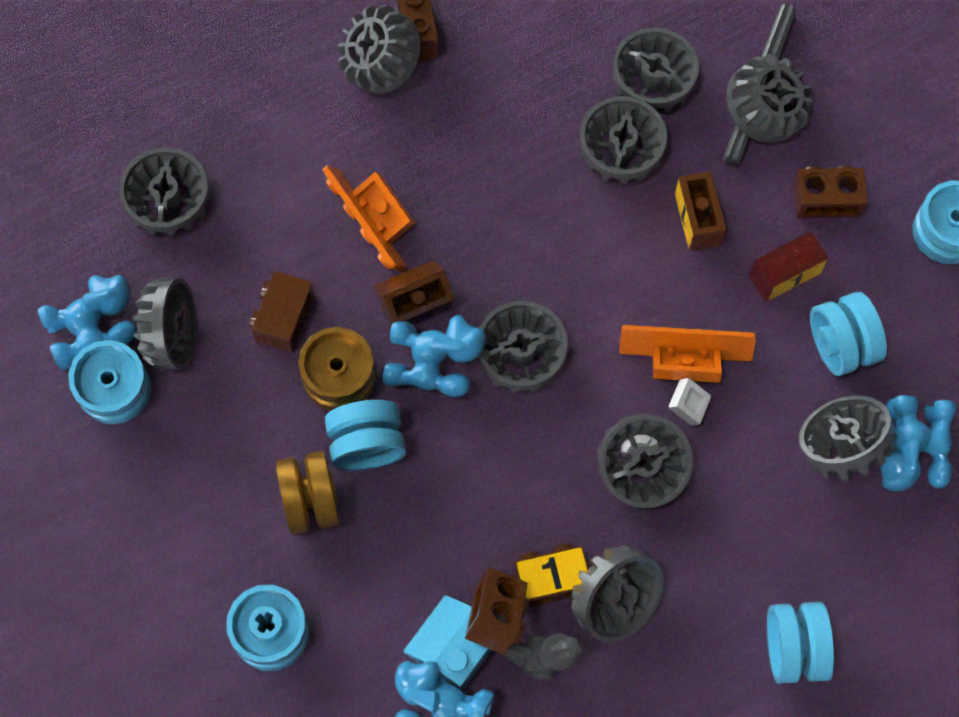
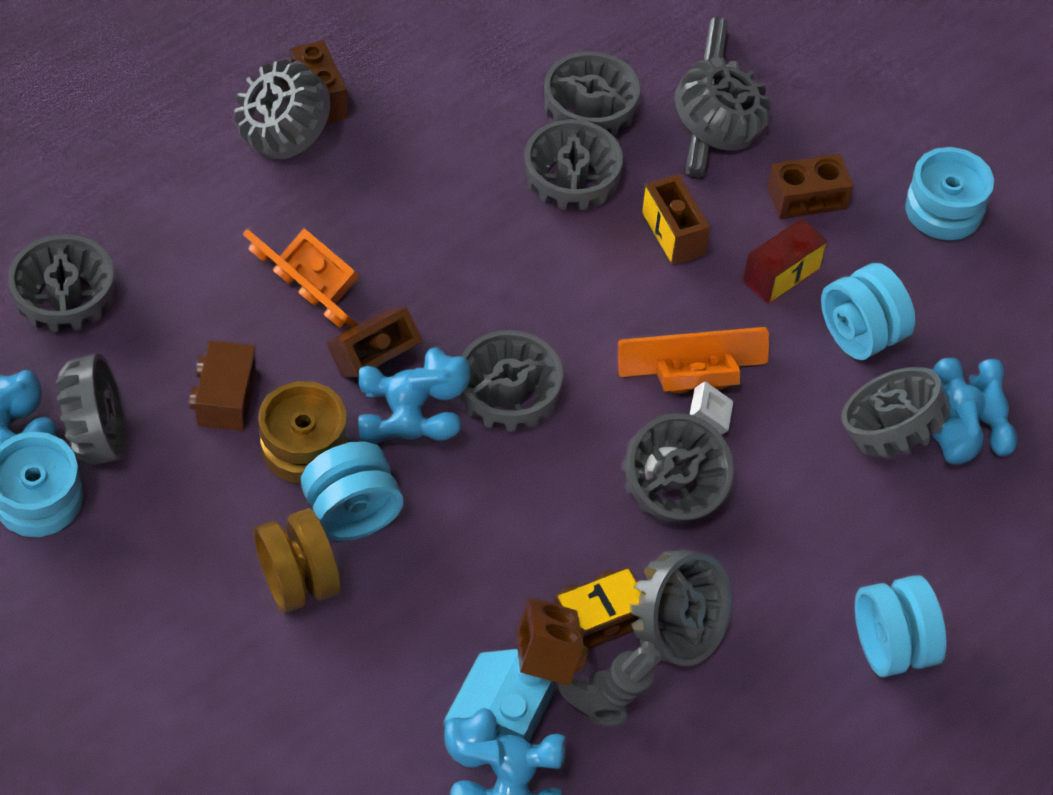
camera: 15 degrees left, 15 degrees down
(263, 607) = (278, 716): medium azure wheel -> none

